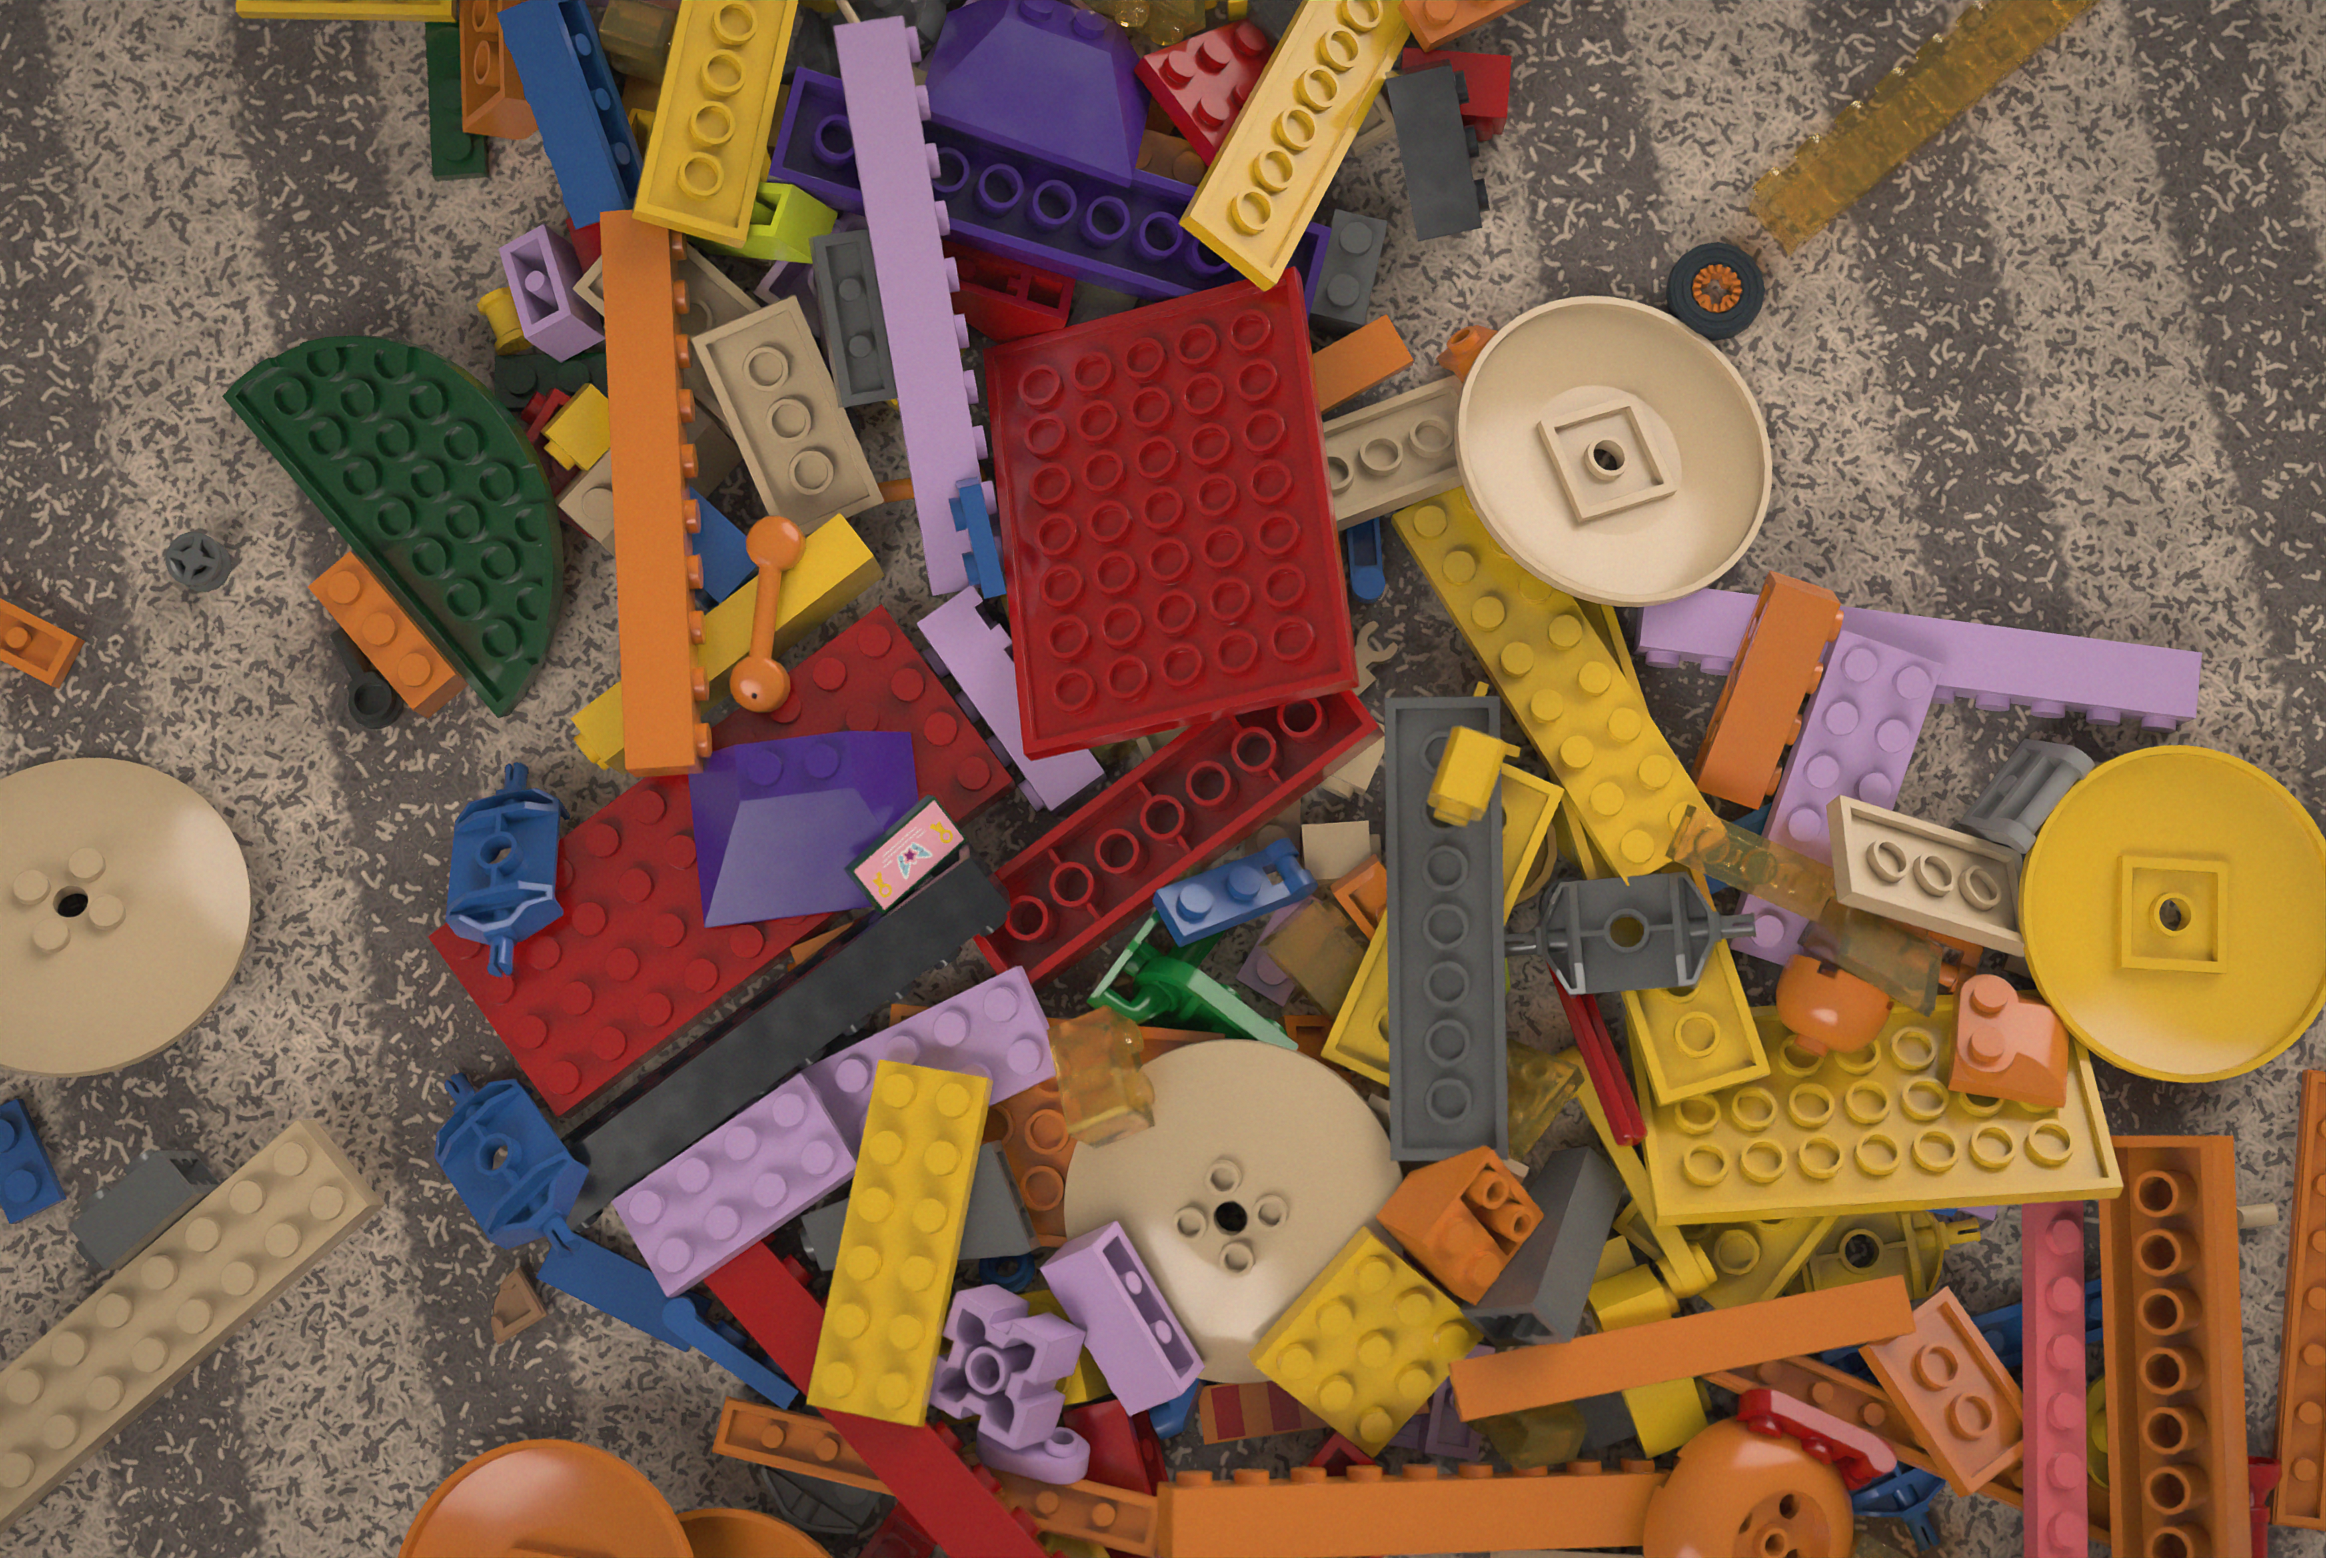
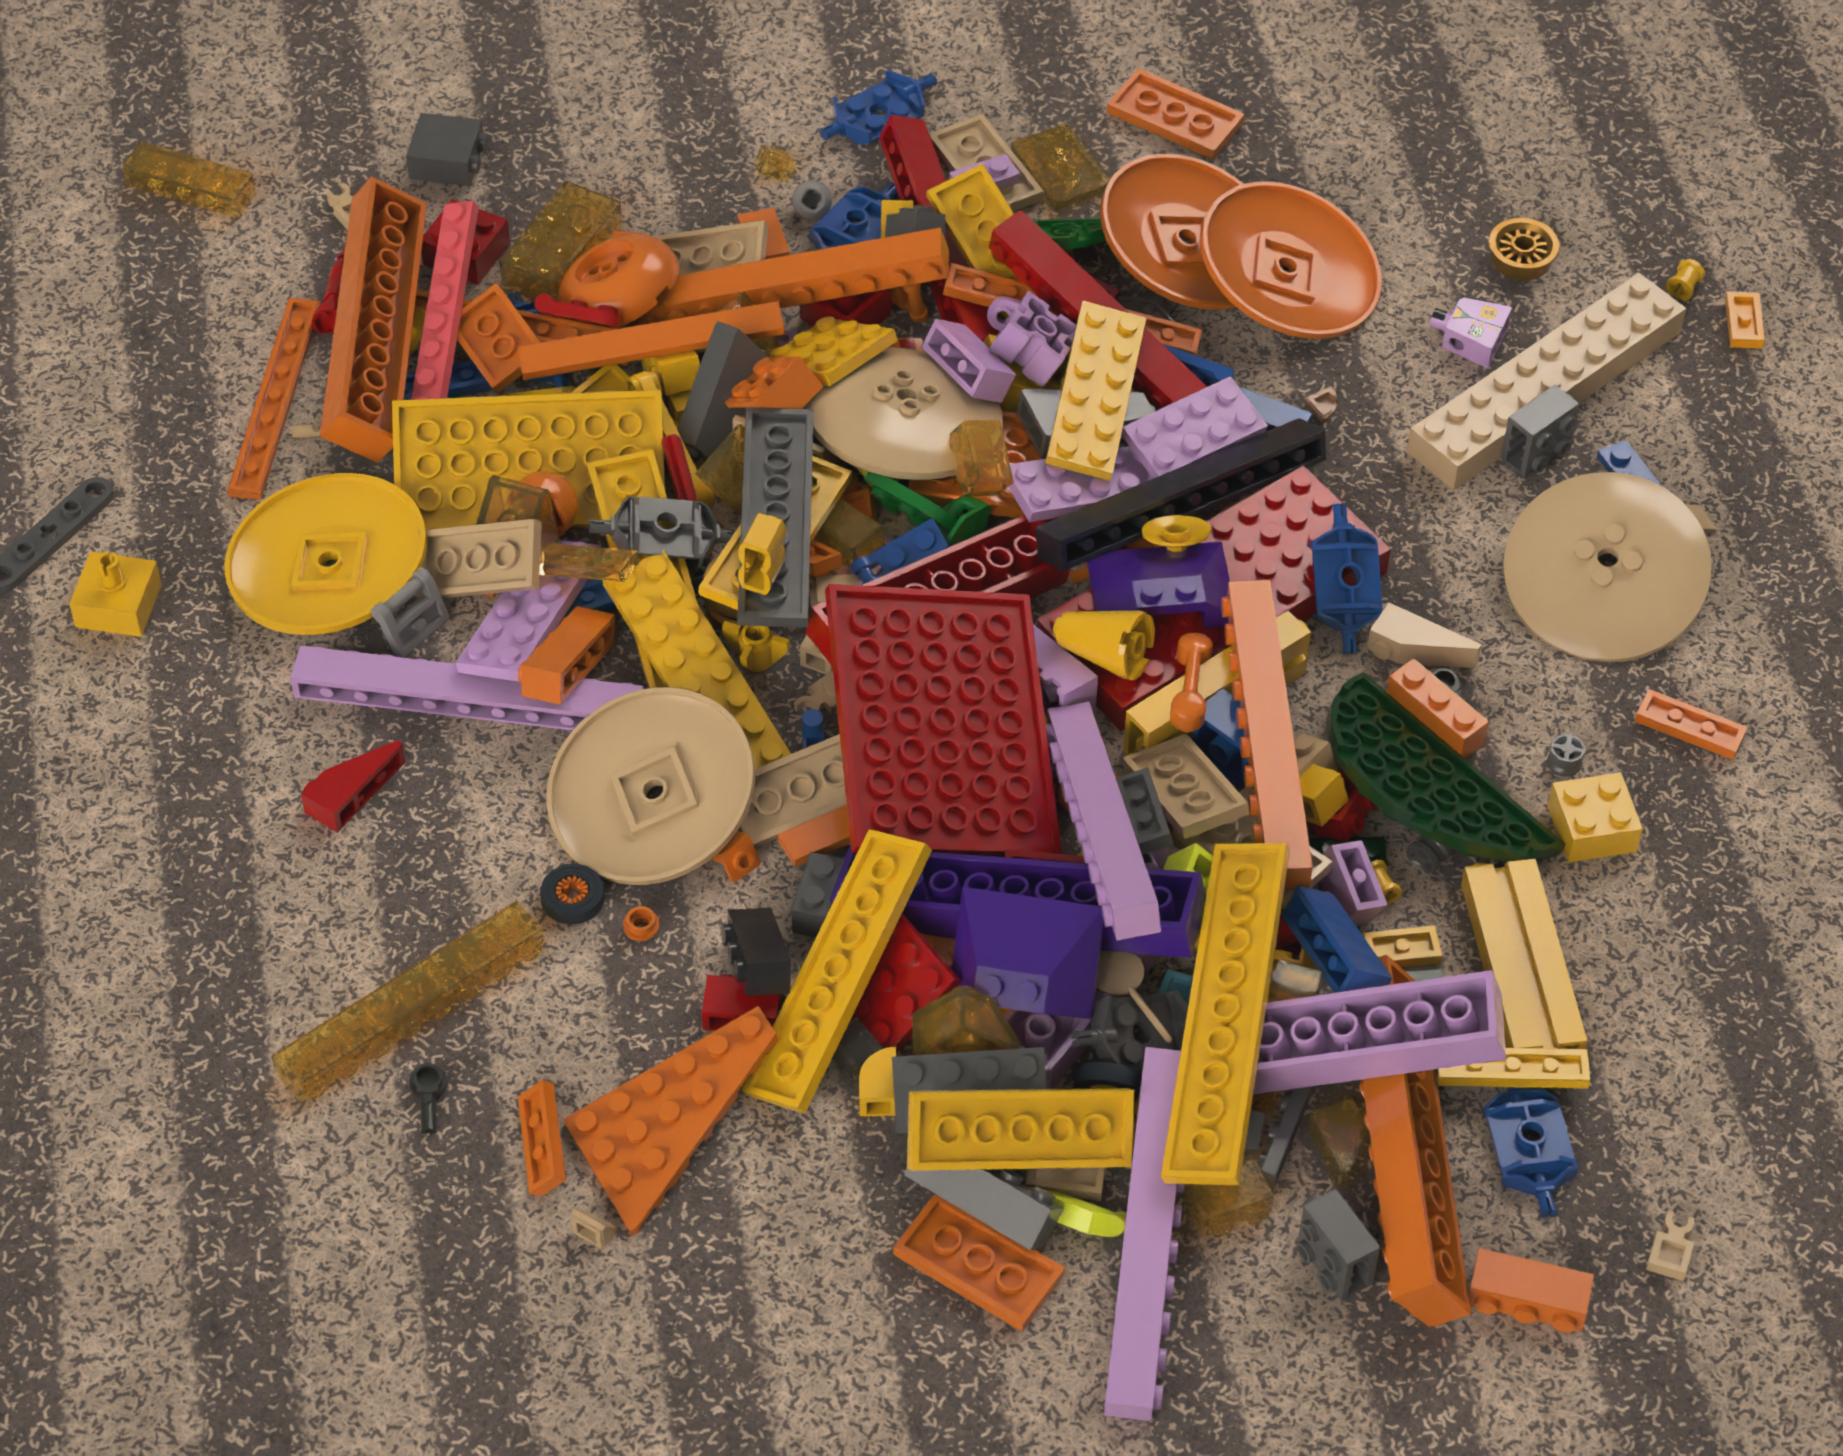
camera: 175 degrees right, 30 degrees down
(169, 436) = (1594, 817): none -> yellow brick
(236, 1473) = (1473, 329): none -> lavender torso
(310, 181) = (1524, 952): none -> yellow brick
(411, 778) = (1406, 636): none -> tan slope
(485, 211) = (1407, 946): none -> yellow plate
(534, 1184) = (1310, 425): blue plate -> none
(773, 942) = (1176, 531): none -> yellow dish
(903, 690) = (1108, 639): none -> yellow cone
(905, 854) = (1100, 559): bright pink tile -> none
(971, 515) = (1059, 710): blue plate -> none
(1619, 228) = (638, 915): none -> orange plate
(2007, 1044) = (443, 487): orange slope -> none
(2088, 456) = (348, 786): none -> red slope

